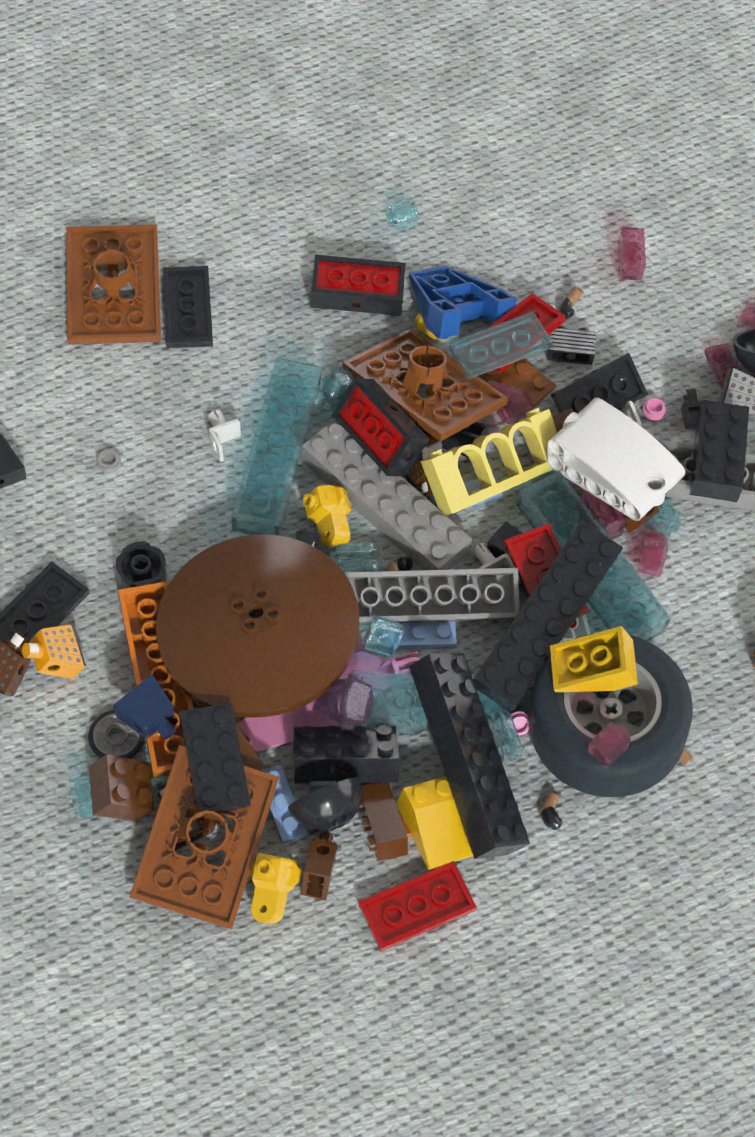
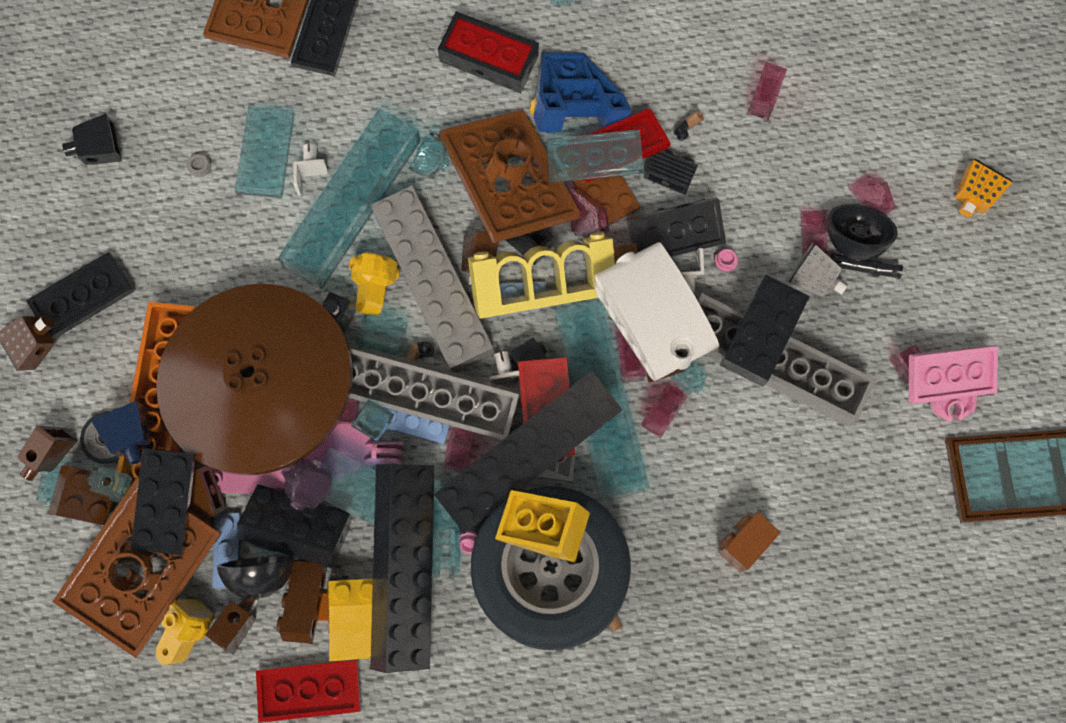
camera: 25 degrees right, 15 degrees up
(56, 652) = (76, 342): light orange torso -> none
(66, 752) = (44, 450): none -> reddish brown torso
(140, 565) = (181, 283): black brick -> none
(152, 761) = (118, 487): none -> clear light blue brick
(172, 431) = (264, 152): none -> clear light blue plate
(380, 427) = (444, 210): brick -> none
(474, 642) = (459, 449): none -> clear pink slope
(548, 813) = (463, 639): black arm -> none
(609, 744) = (523, 615): clear pink brick -> none
(690, 408) = (763, 269): black plate -> none

